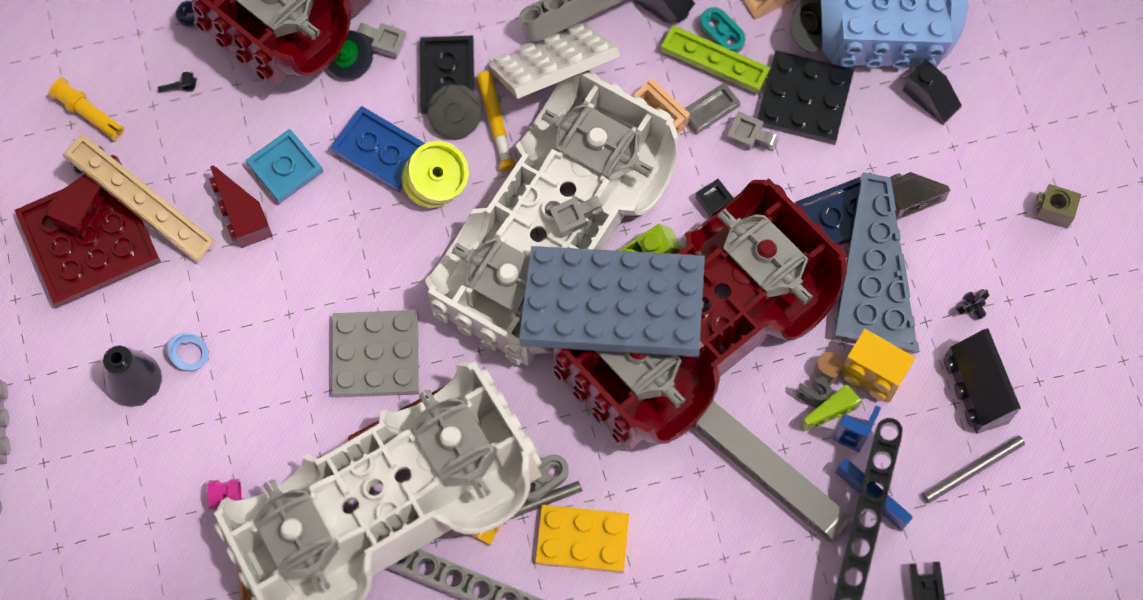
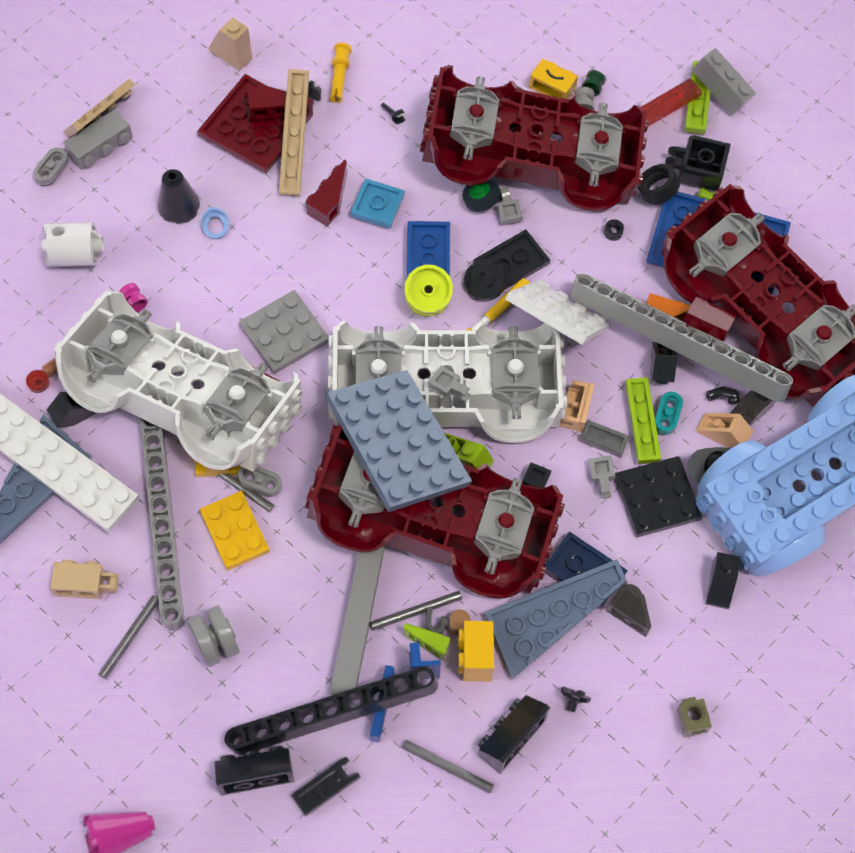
camera: 55 degrees right, 5 degrees down
(111, 523) = (72, 244): none -> white cylinder
(788, 402) = (416, 610): none -> flat silver bar

